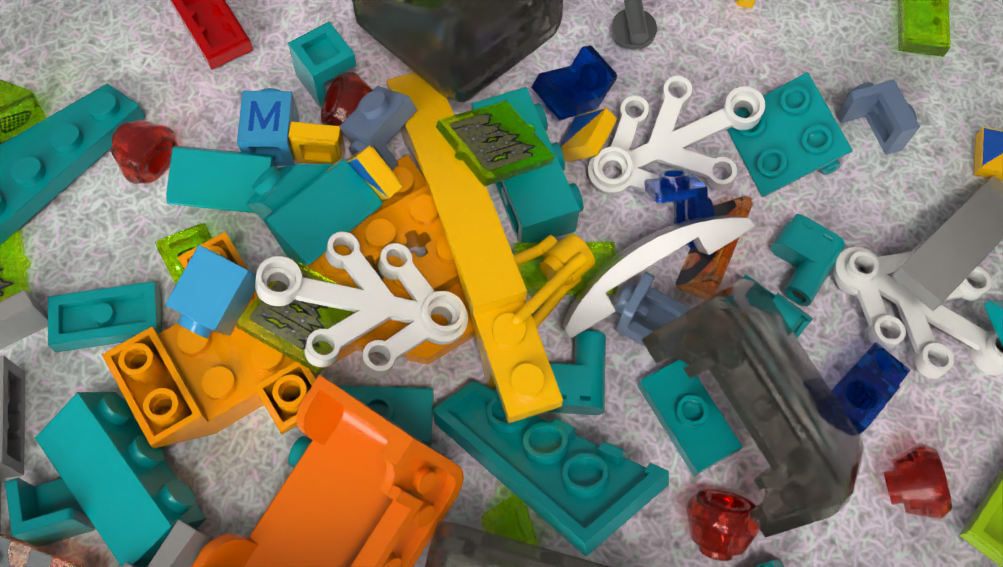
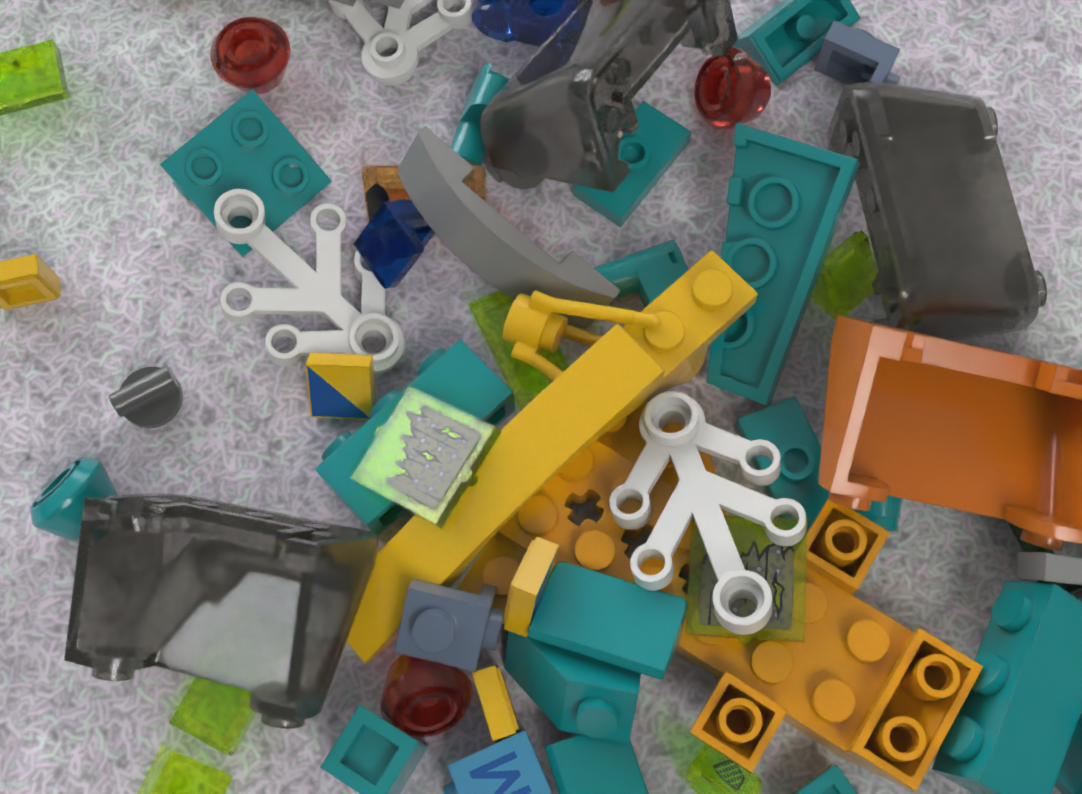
camera: 105 degrees left, 5 degrees up
(211, 293) = (789, 677): dark azure brick -> none
(576, 87) = (273, 425): clear blue bracket -> none
(645, 309) = (548, 219): sand blue bracket -> none
(811, 251) = (387, 103): teal piece -> none
(885, 111) = (175, 79): sand blue bracket -> none
(889, 166) = (251, 54): none -> clear red cone

